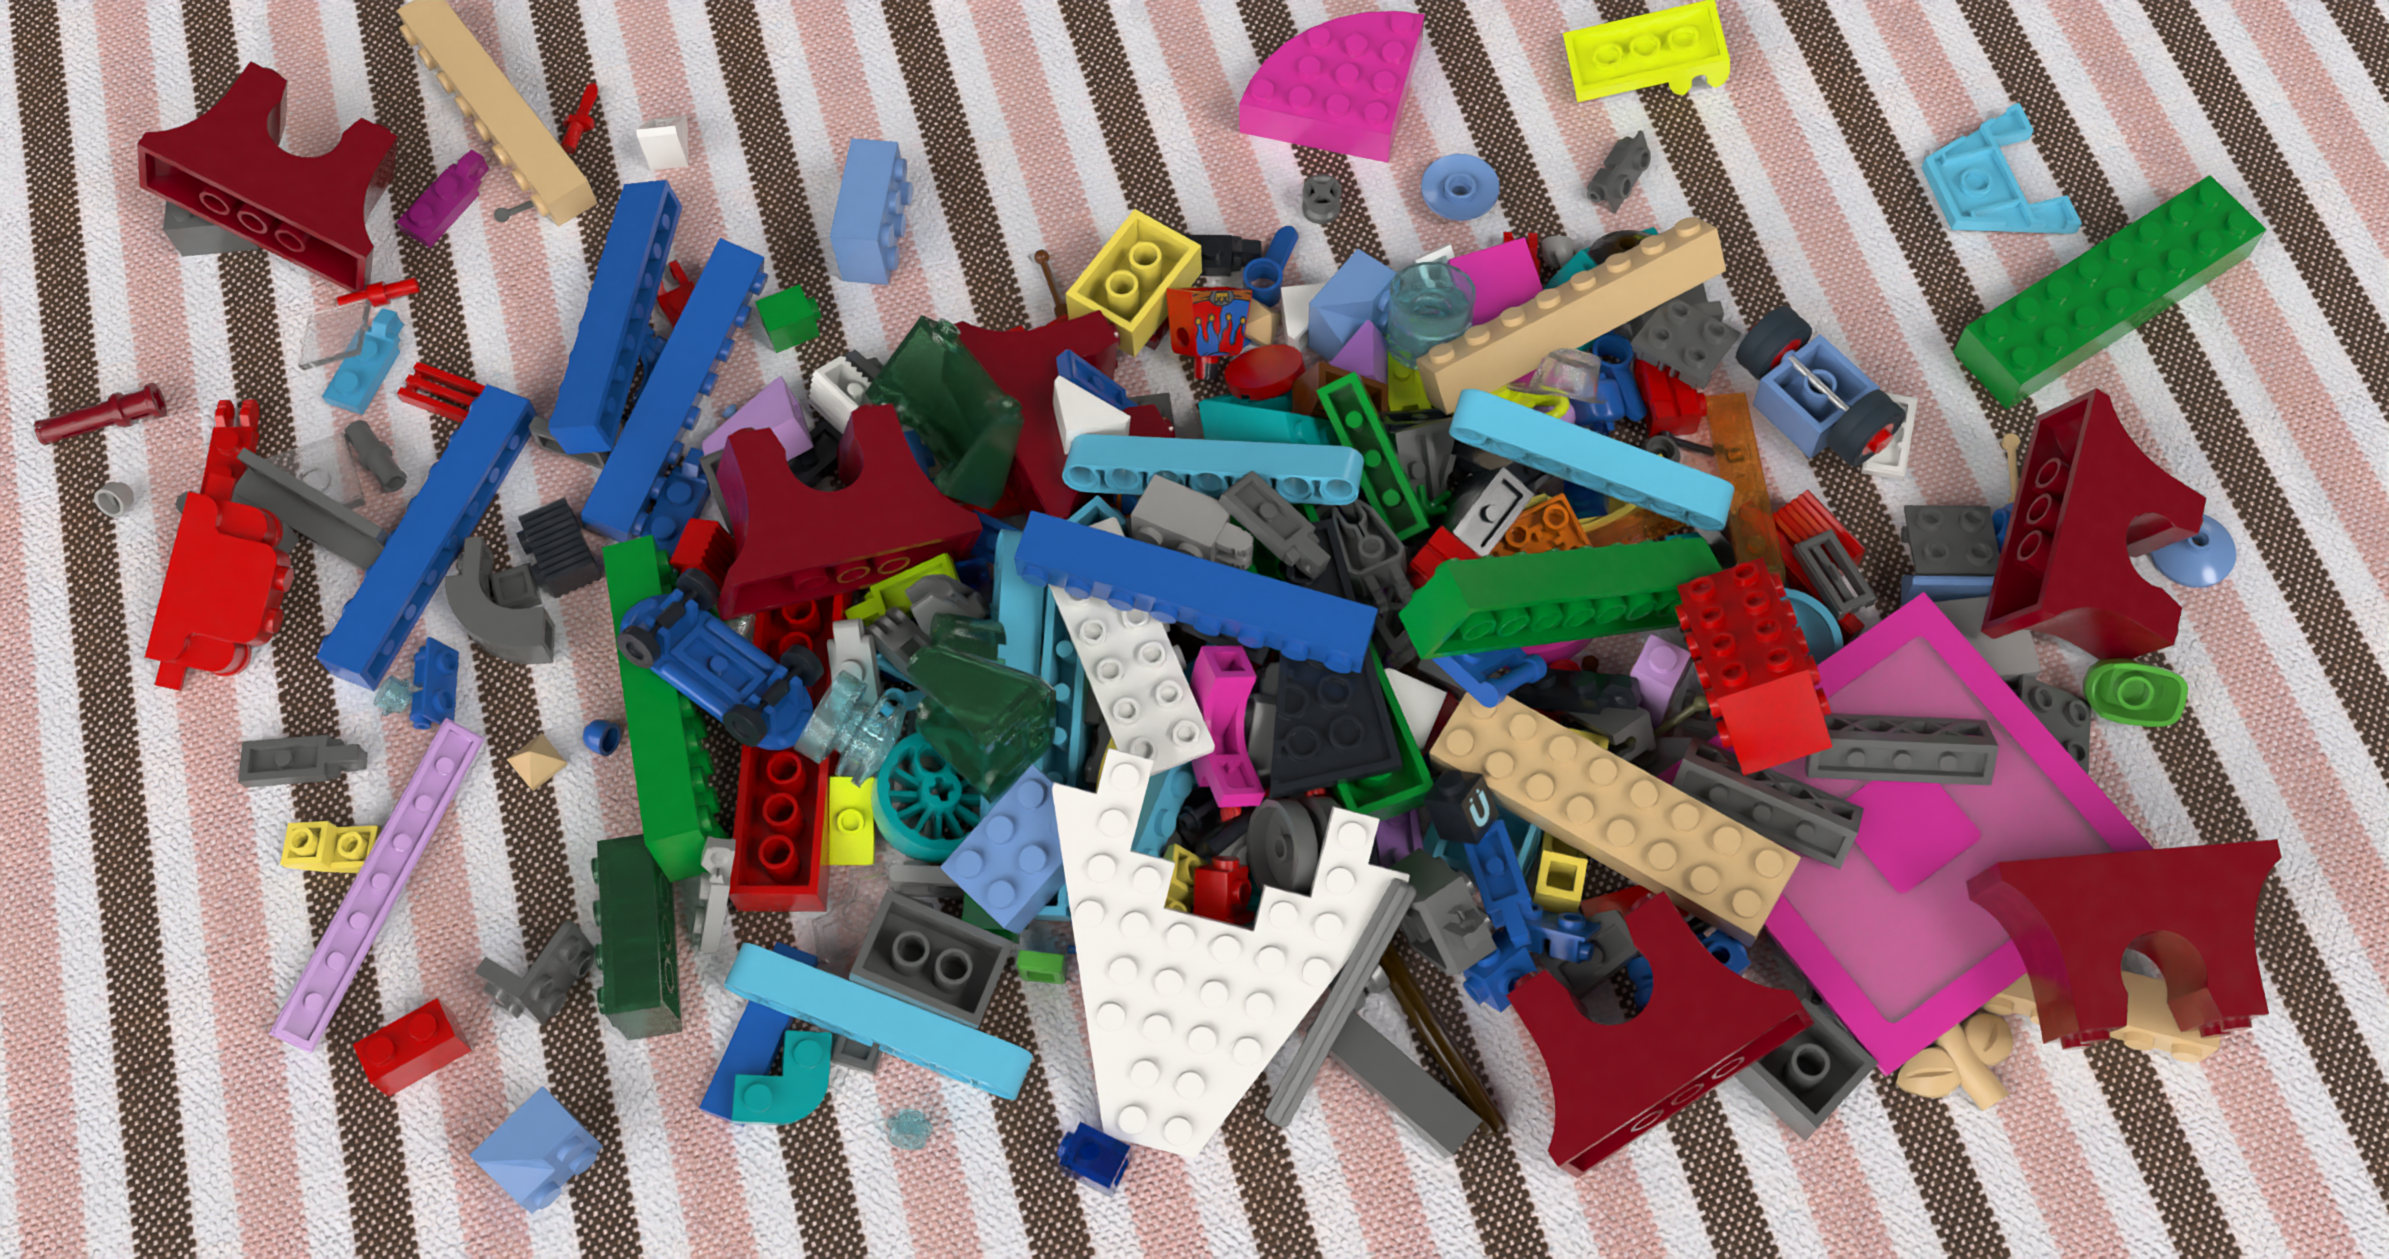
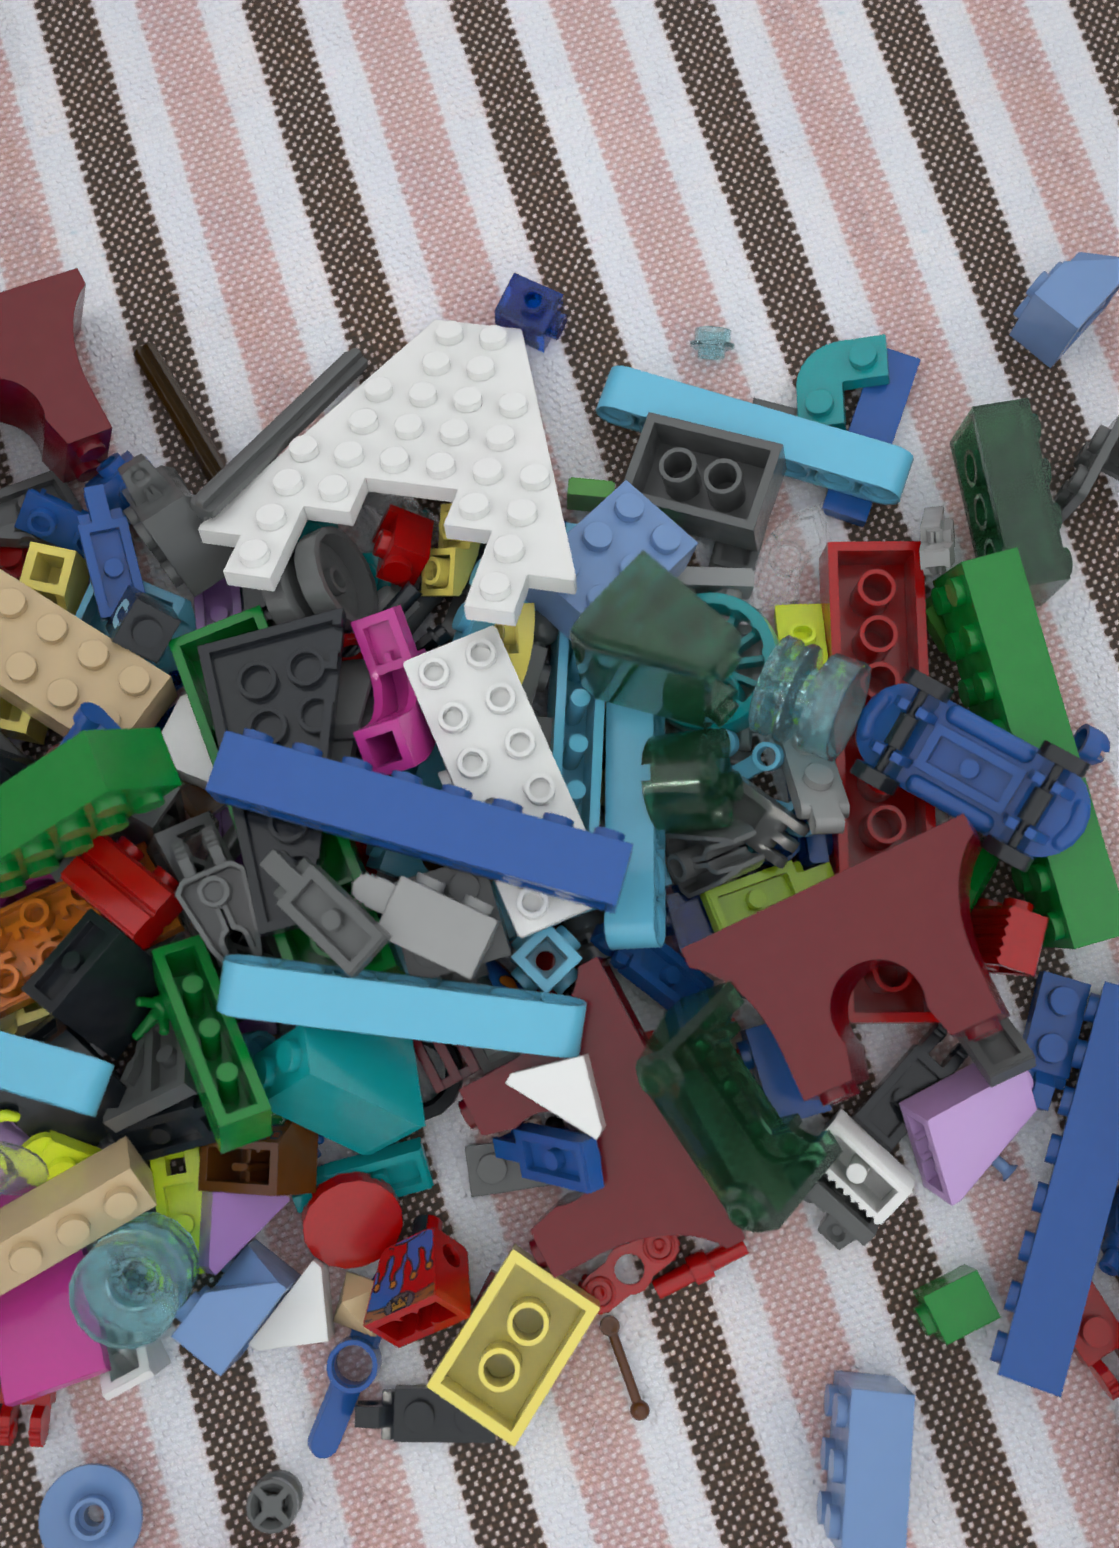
camera: 175 degrees right, 15 degrees up
(1403, 1086) = (220, 376): dark grey slope -> none

